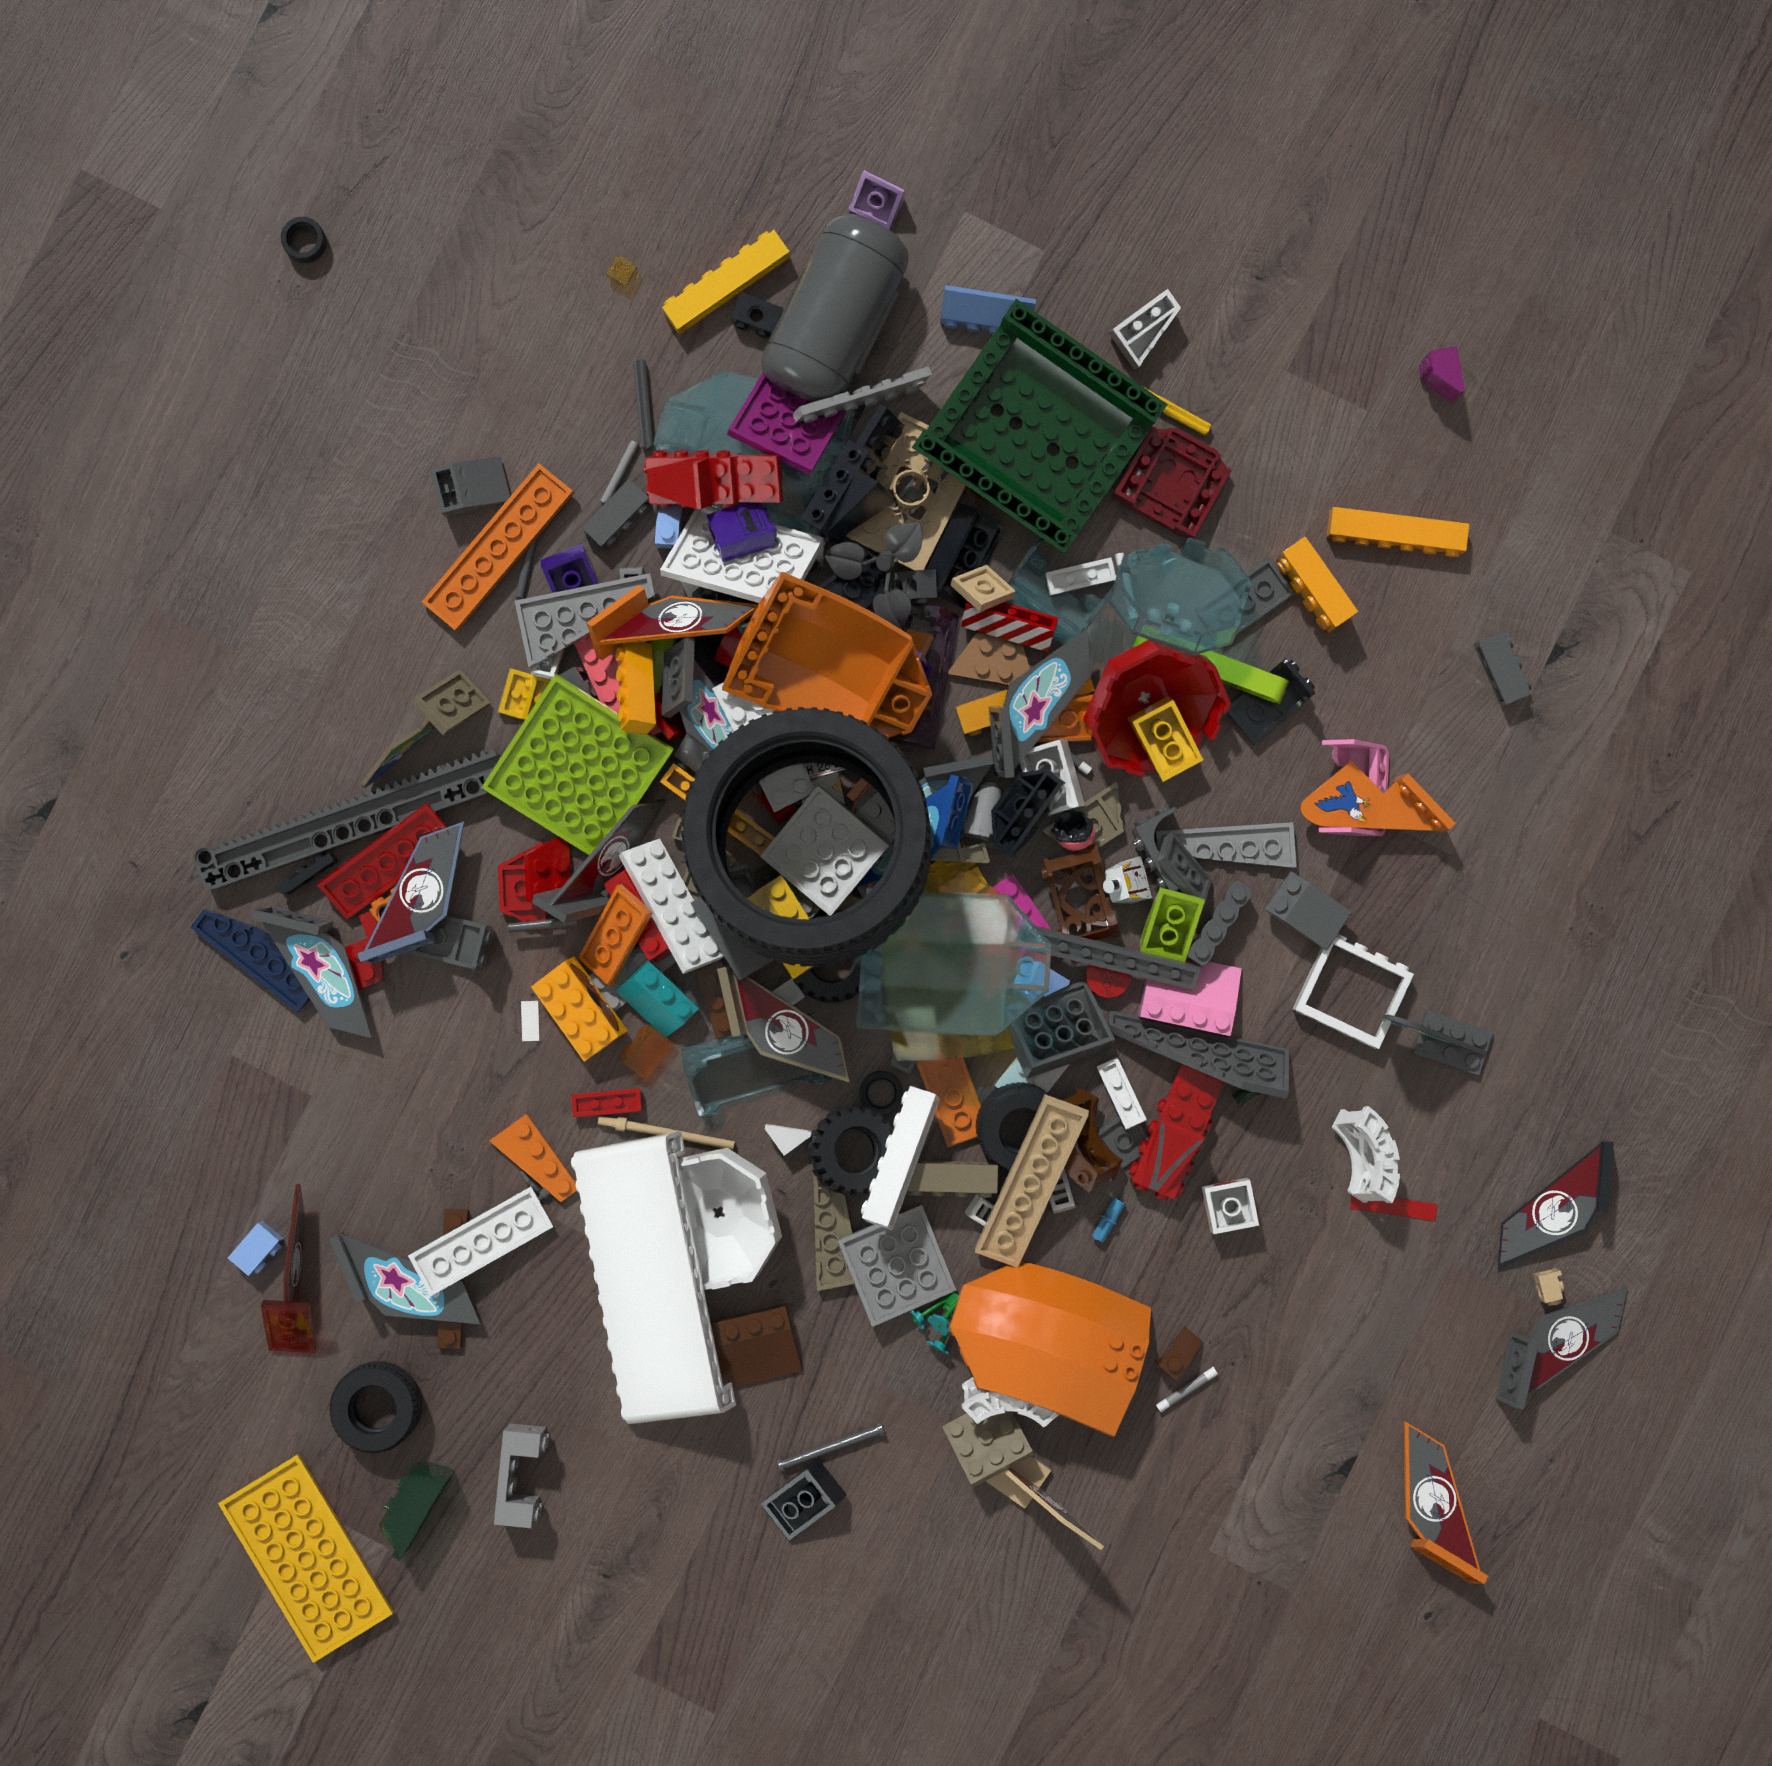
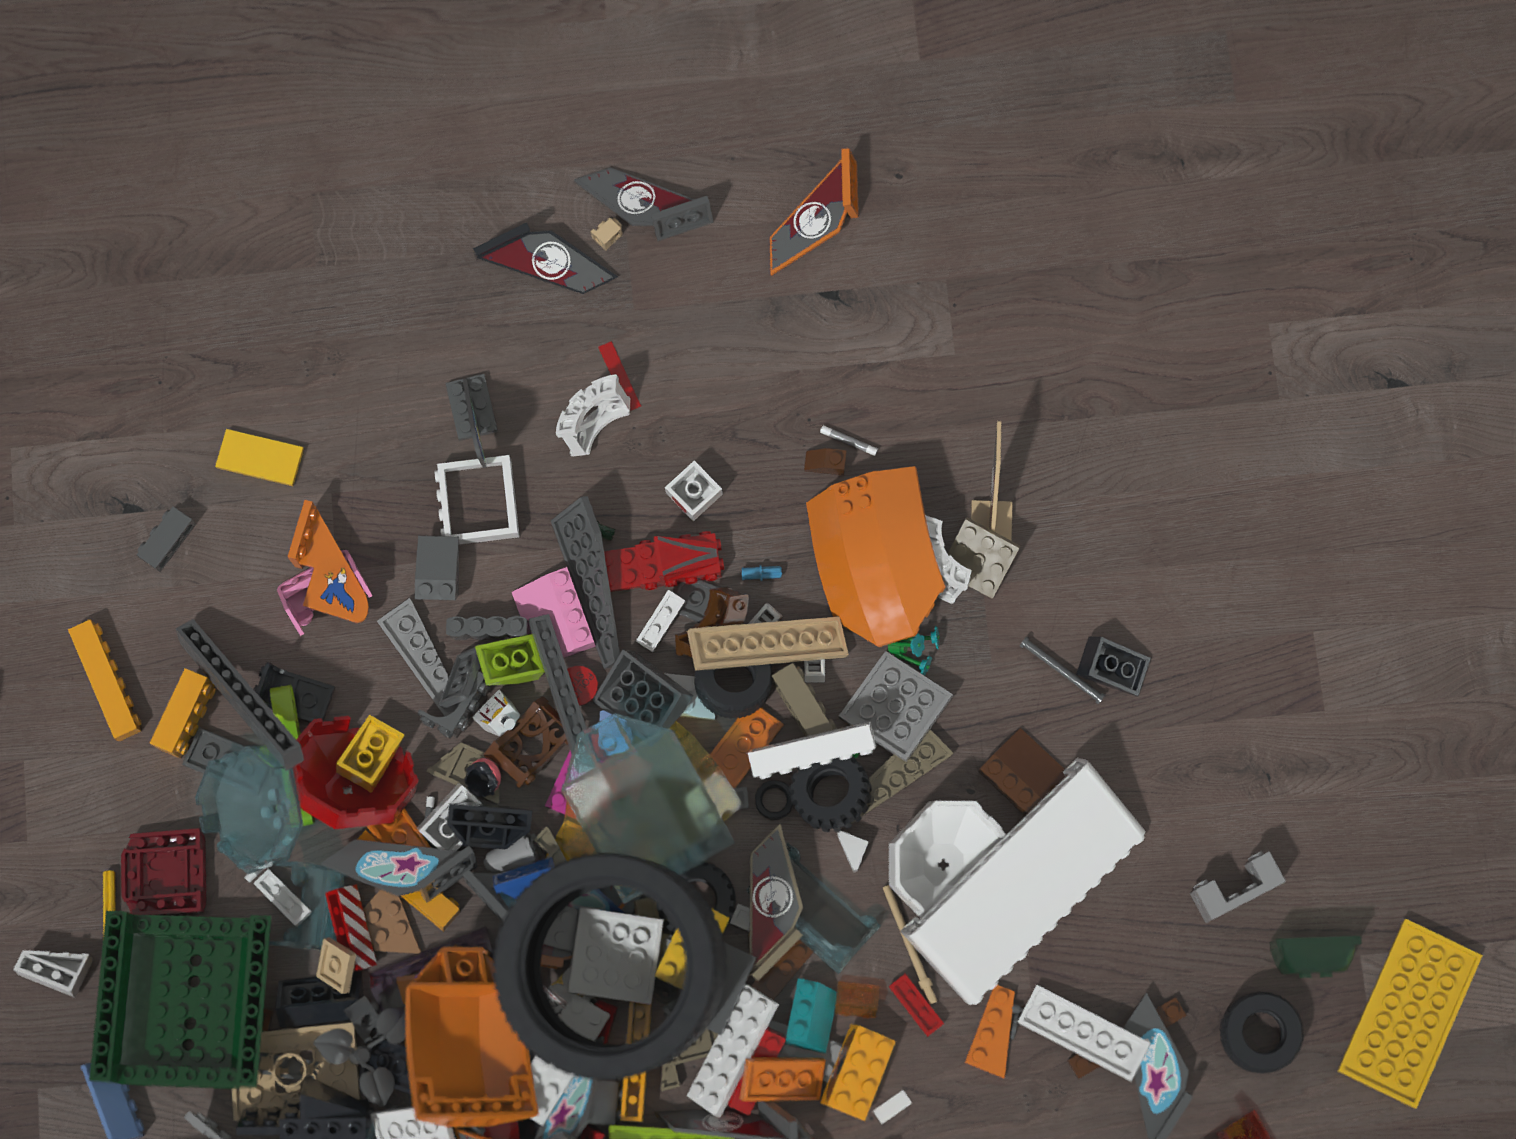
camera: 120 degrees left, 10 degrees down
(1297, 648) = (240, 695): none -> dark grey brick
(1530, 806) = (259, 457): none -> yellow tile

